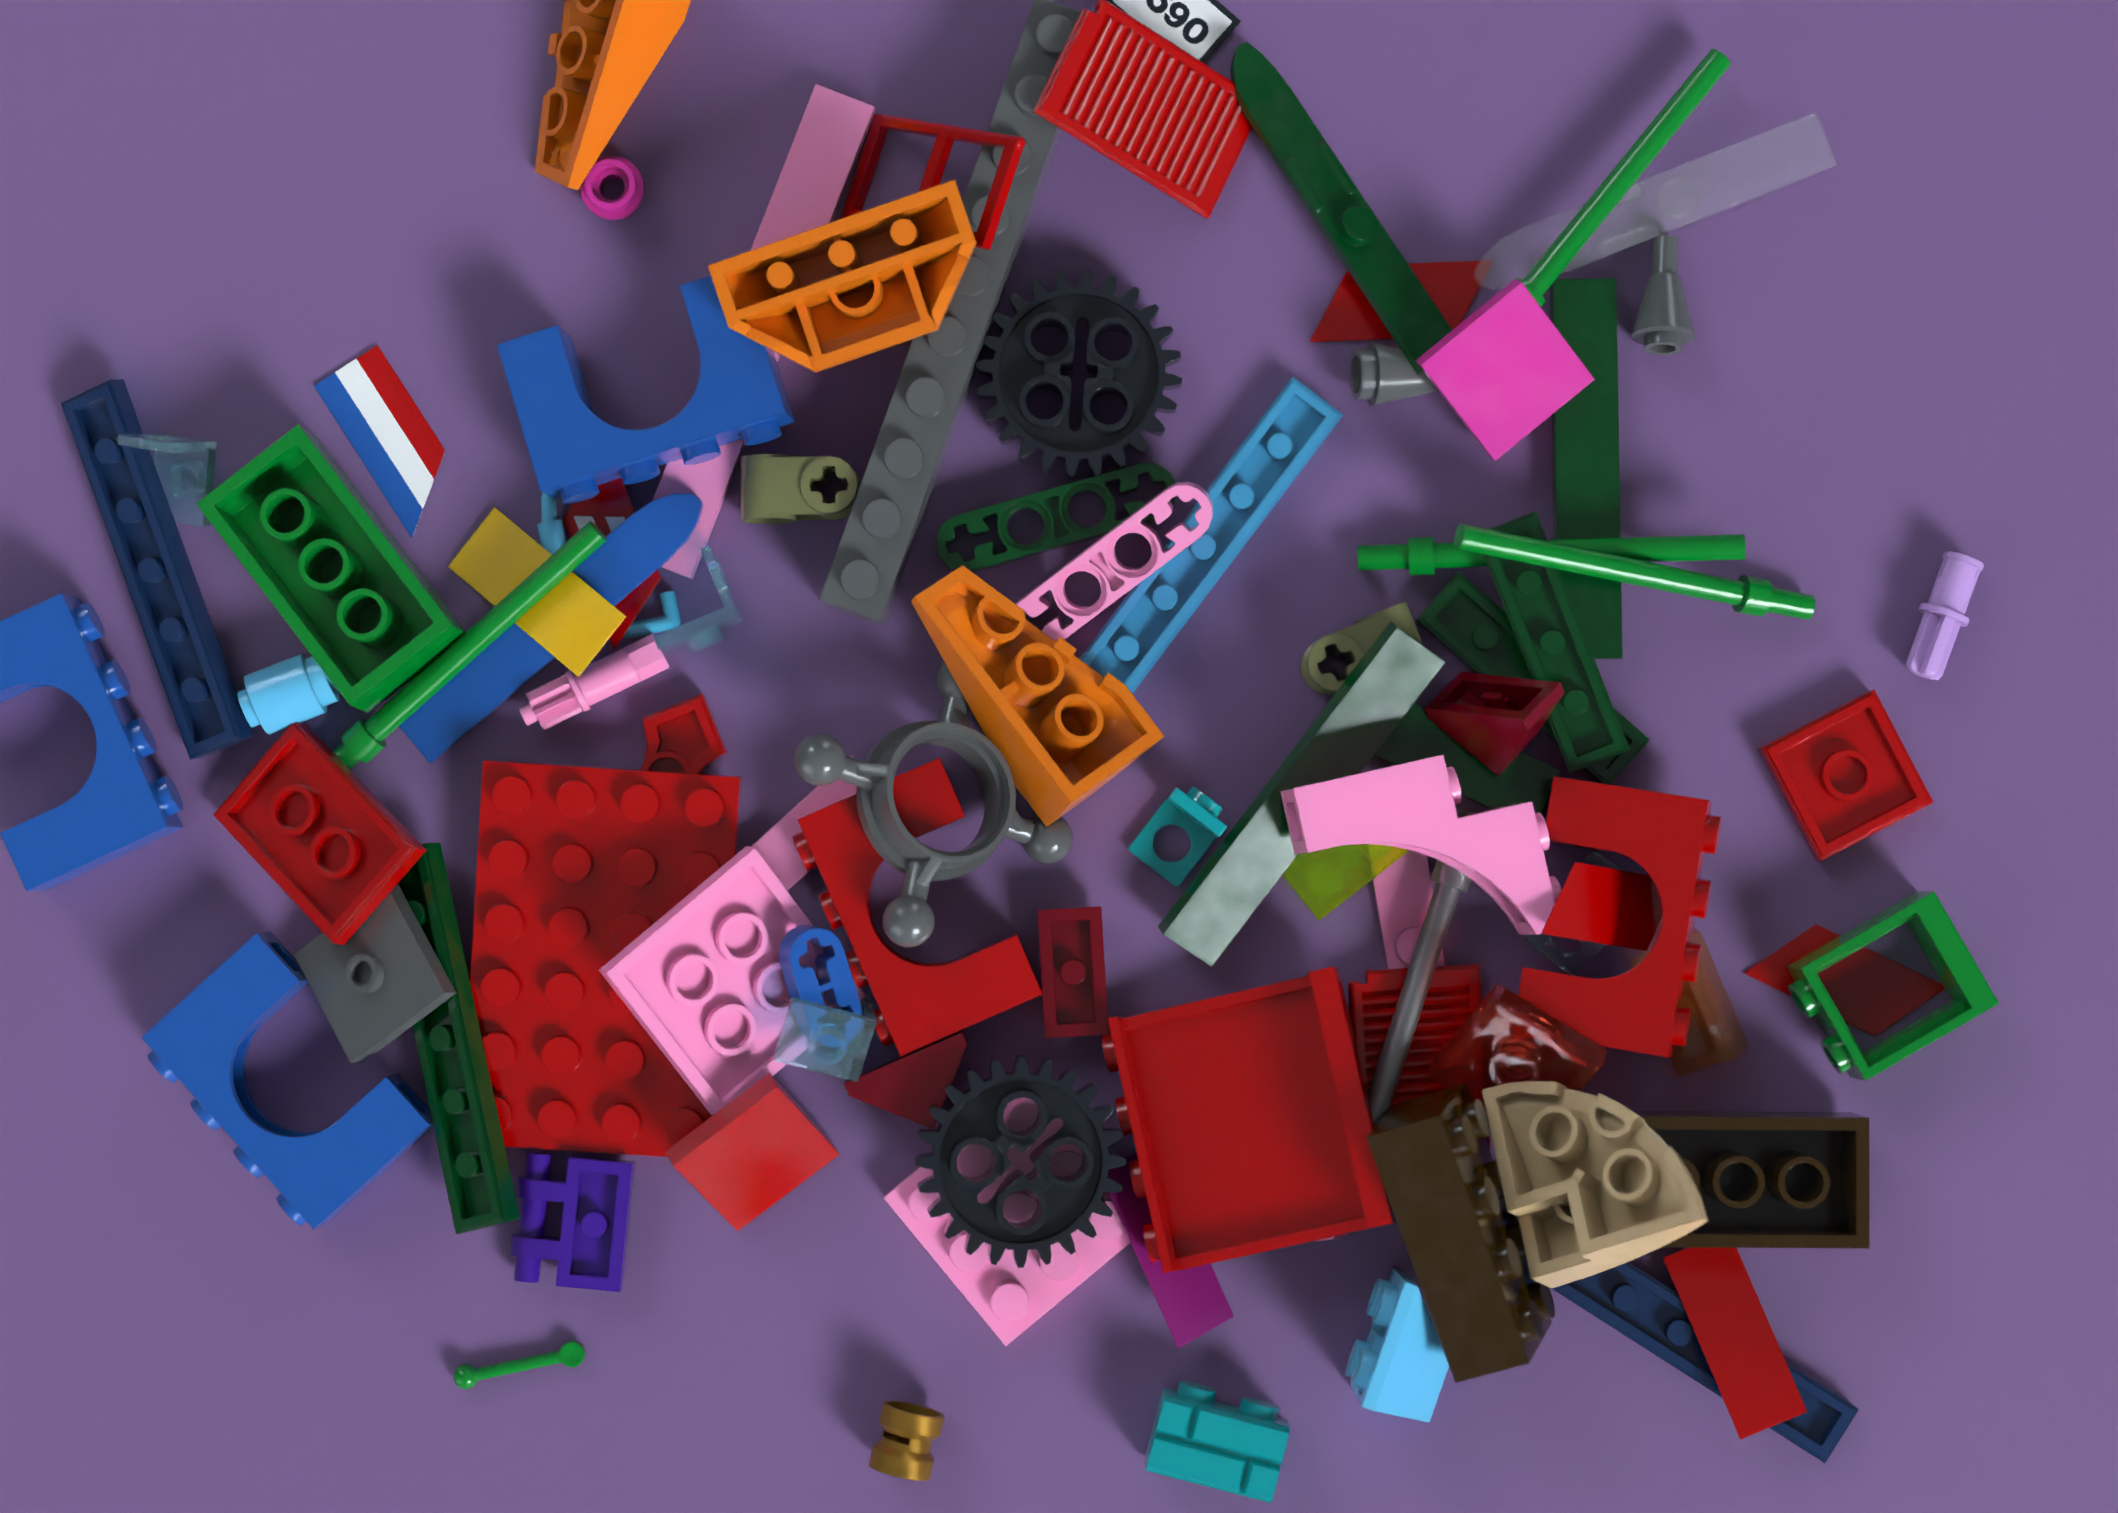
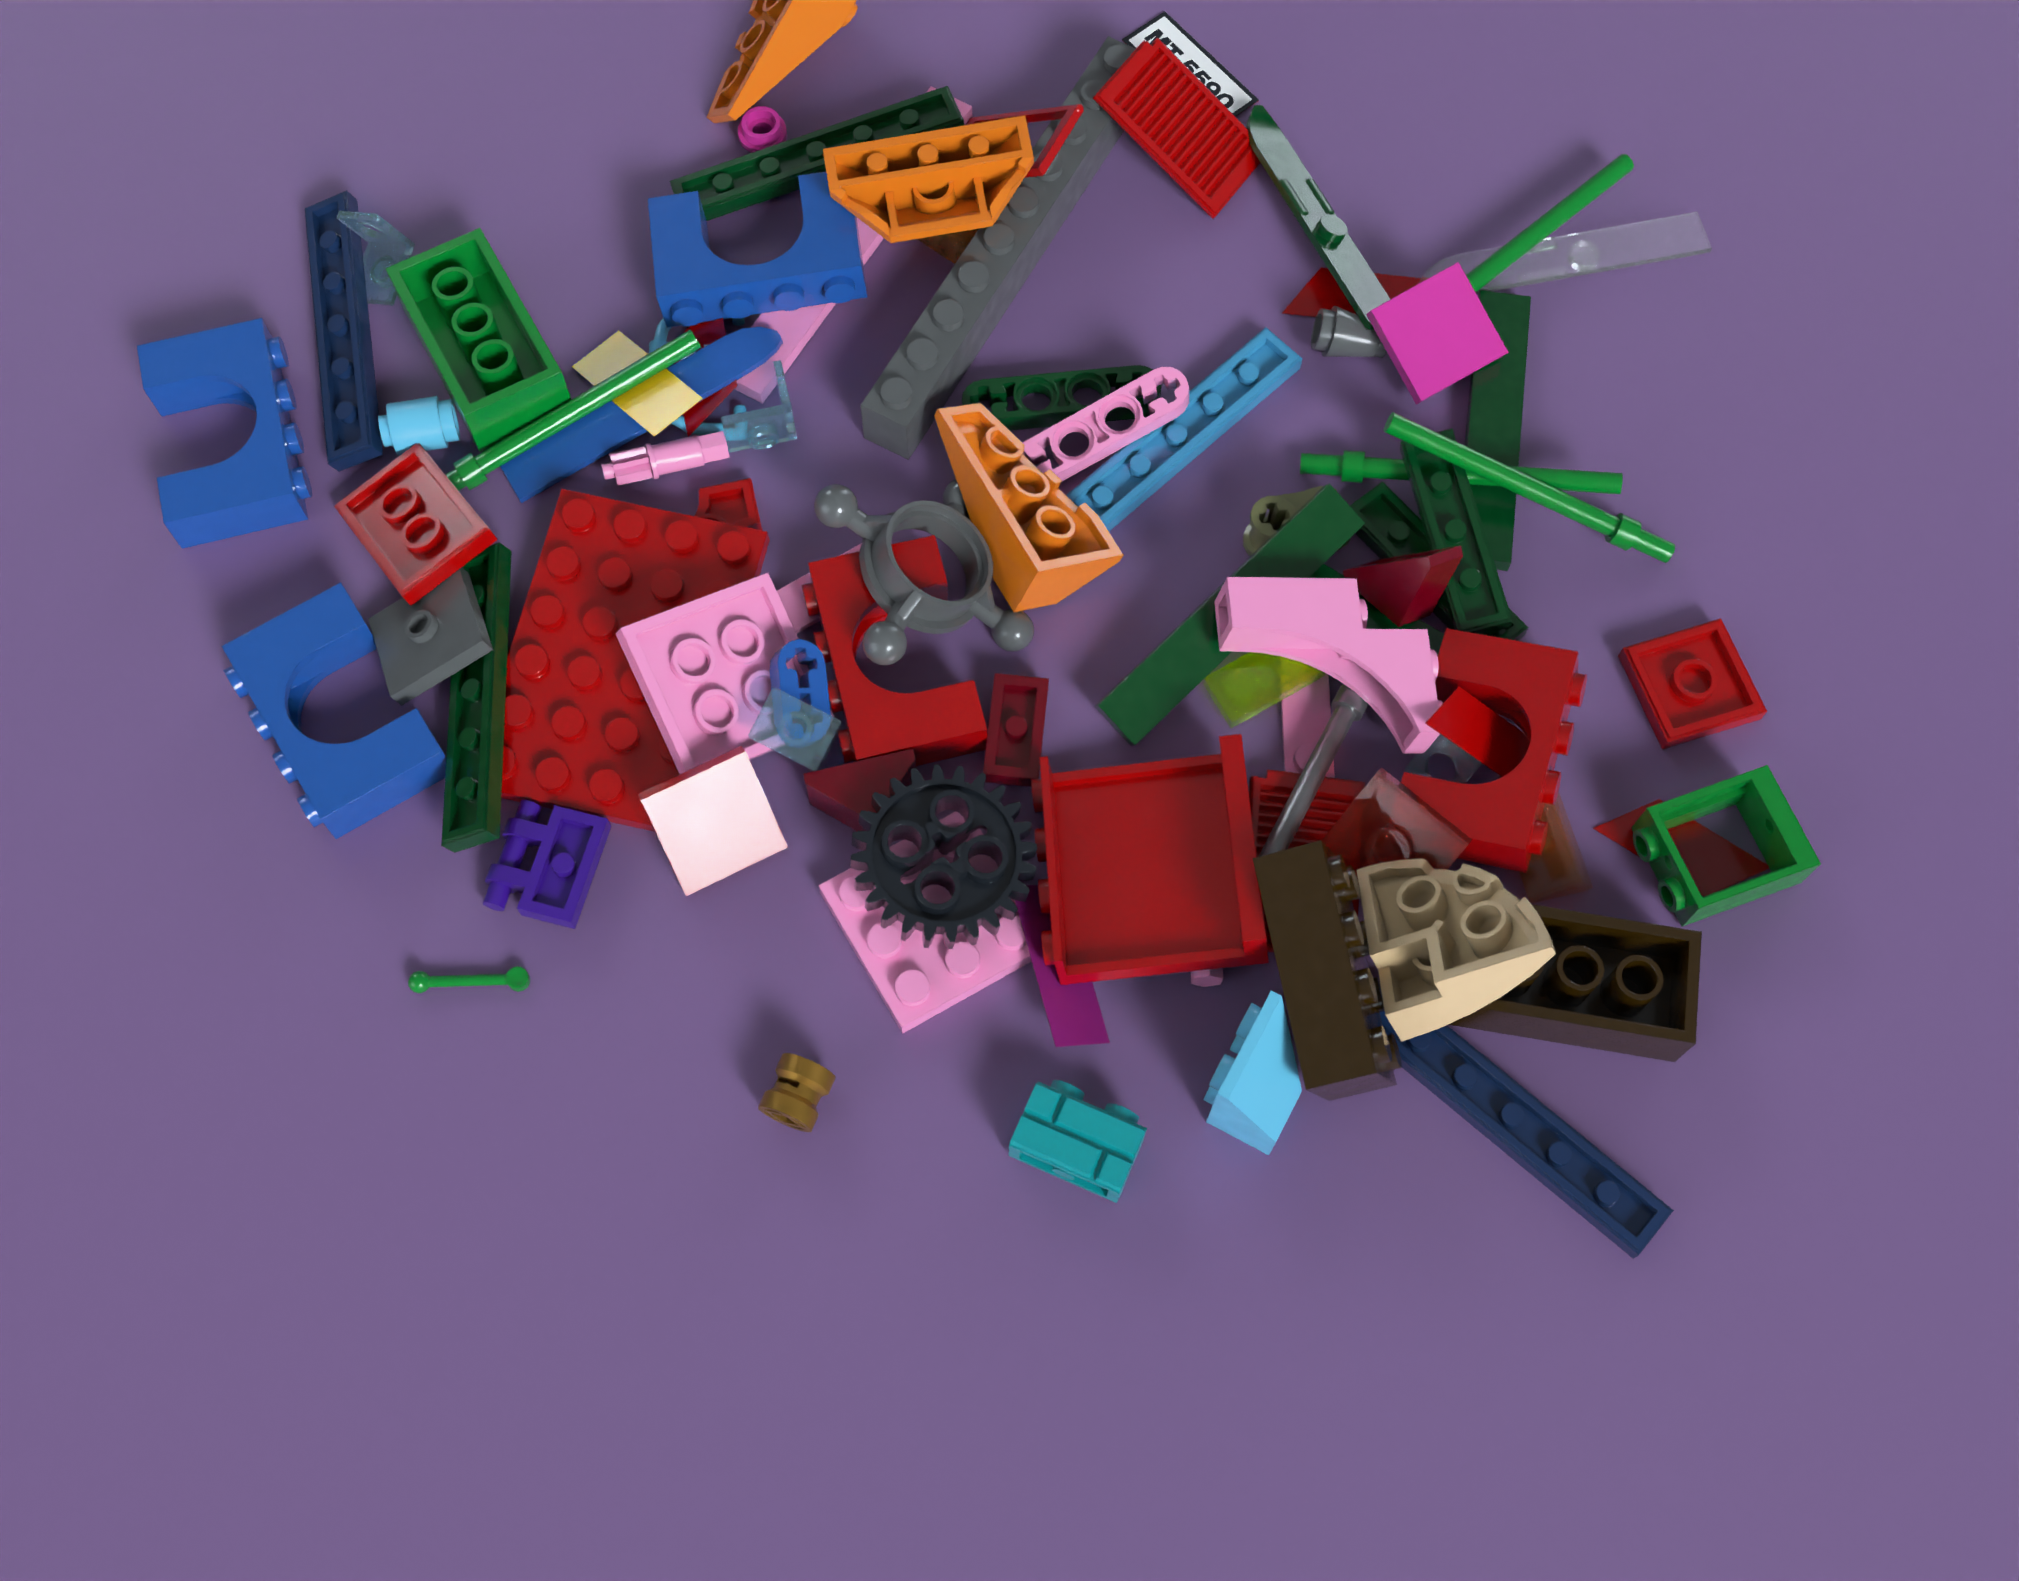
camera: 10 degrees right, 20 degrees down
(385, 431) = (548, 270): sticker -> none
(693, 218) = (776, 168): none -> dark green tile
(786, 487) = (855, 341): olive piece -> none
(1022, 370) = (1051, 288): black gear -> none
(1193, 813) = (1137, 623): teal bracket -> none
(1664, 316) = (1567, 327): dark grey cone -> none
(1735, 1338) = (1564, 1124): red sticker -> none
(1943, 615) = (1782, 571): lavender axle -> none

